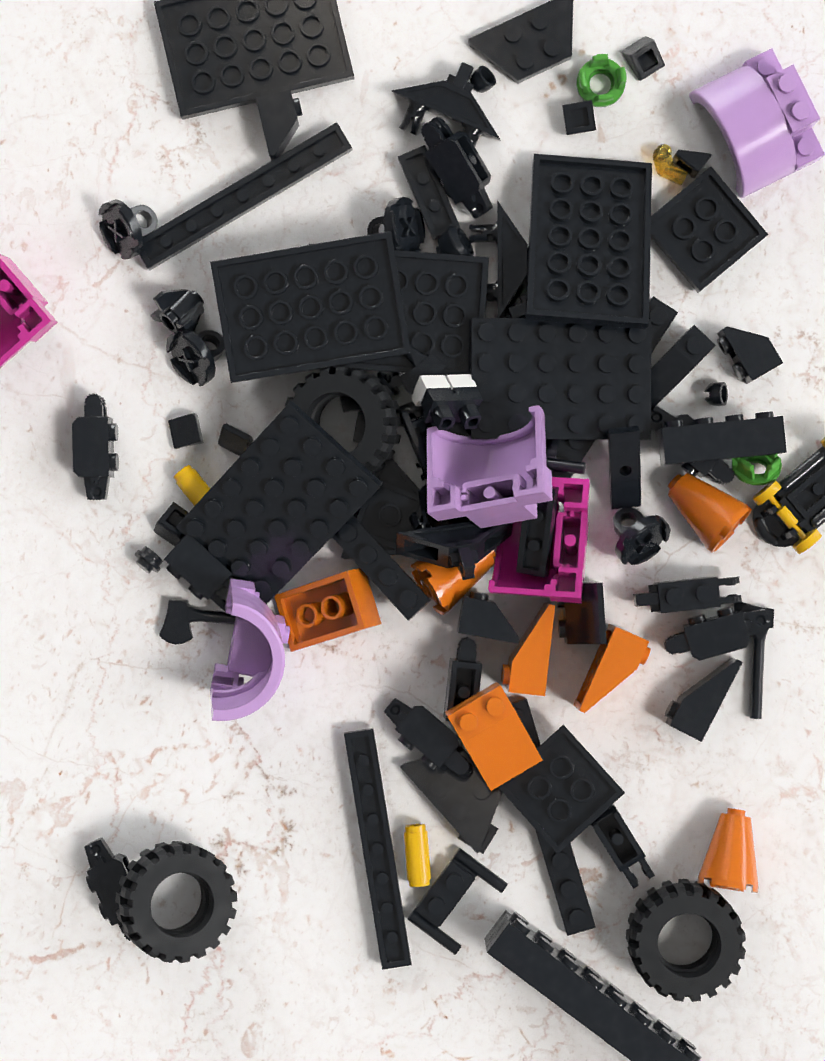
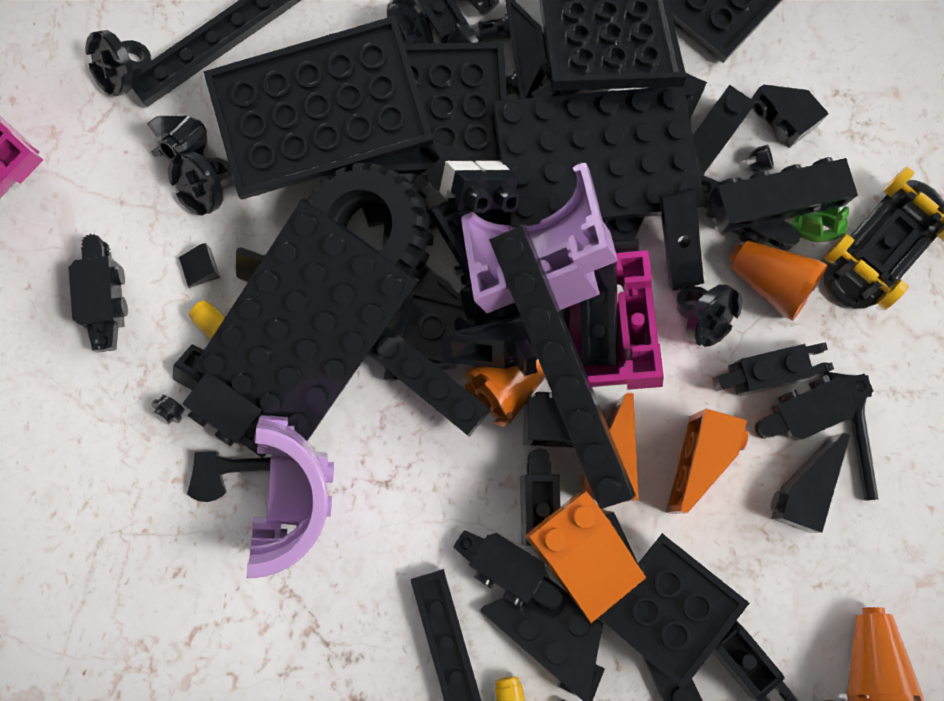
camera: 15 degrees left, 10 degrees down
(328, 609) = (376, 437): orange slope -> none
(494, 579) = (562, 367): none -> black plate
(585, 620) = (665, 410): black slope -> none

